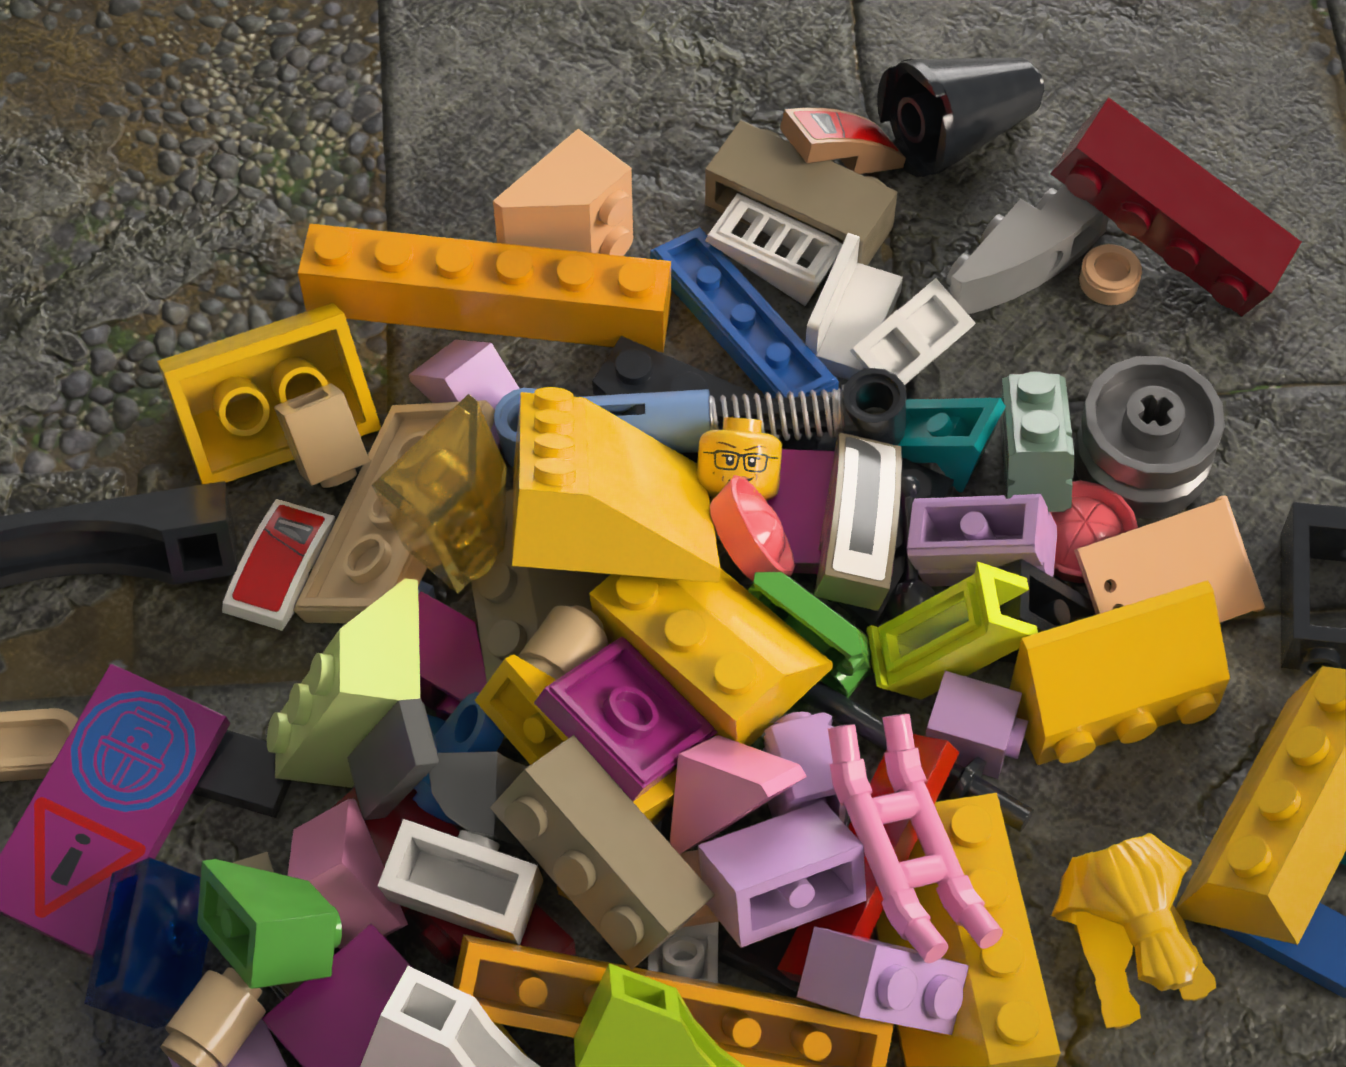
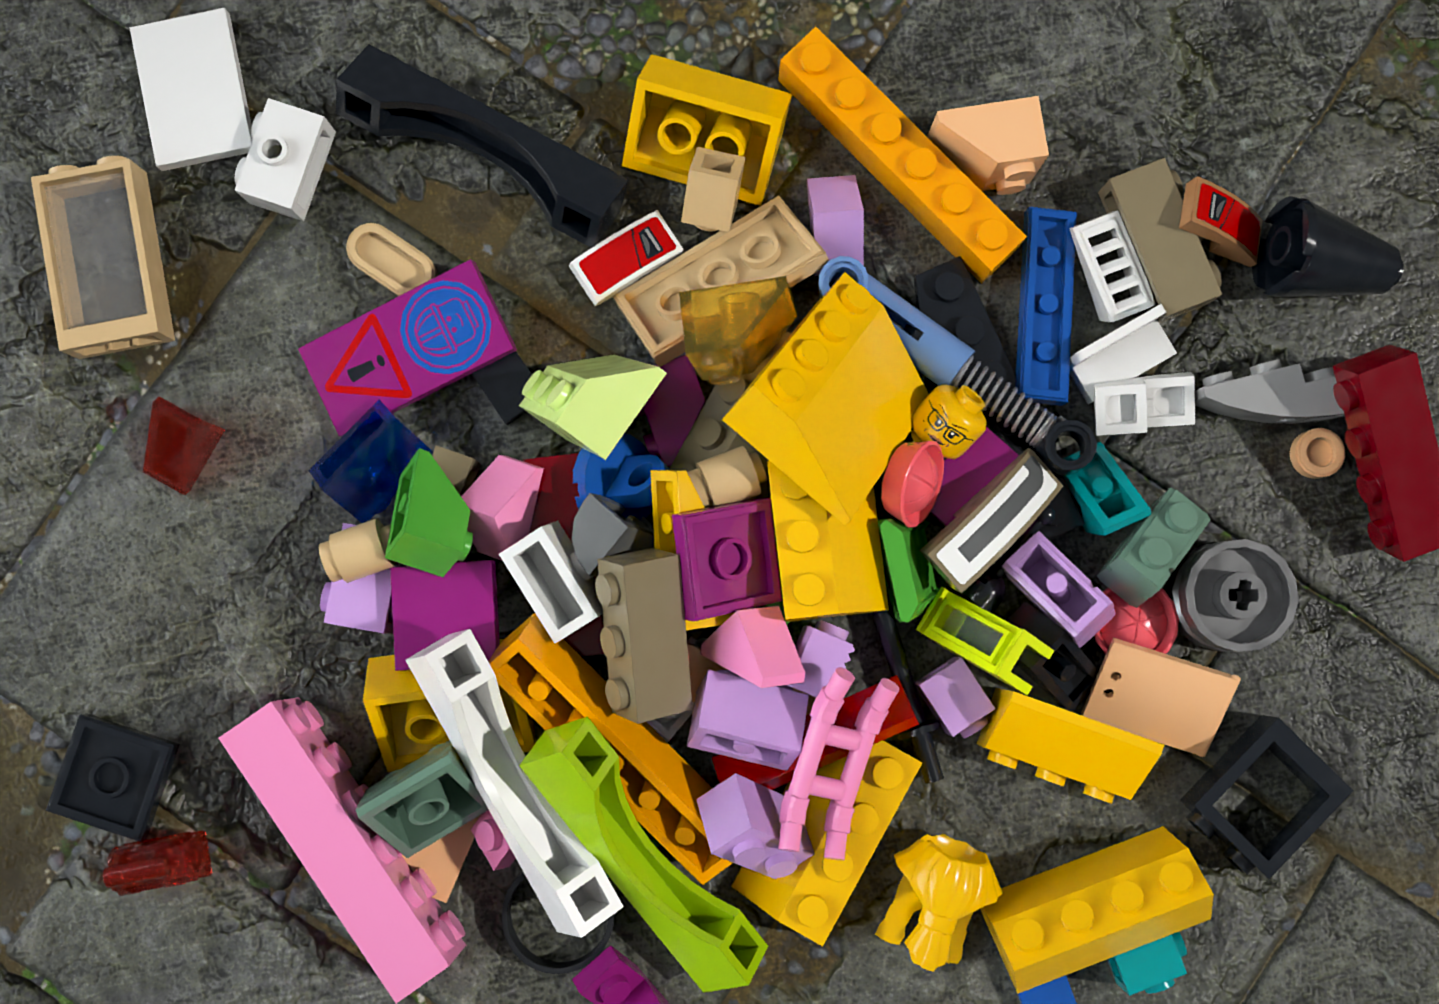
camera: 40 degrees right, 25 degrees up
(393, 758) = (573, 473): dark grey tile -> none

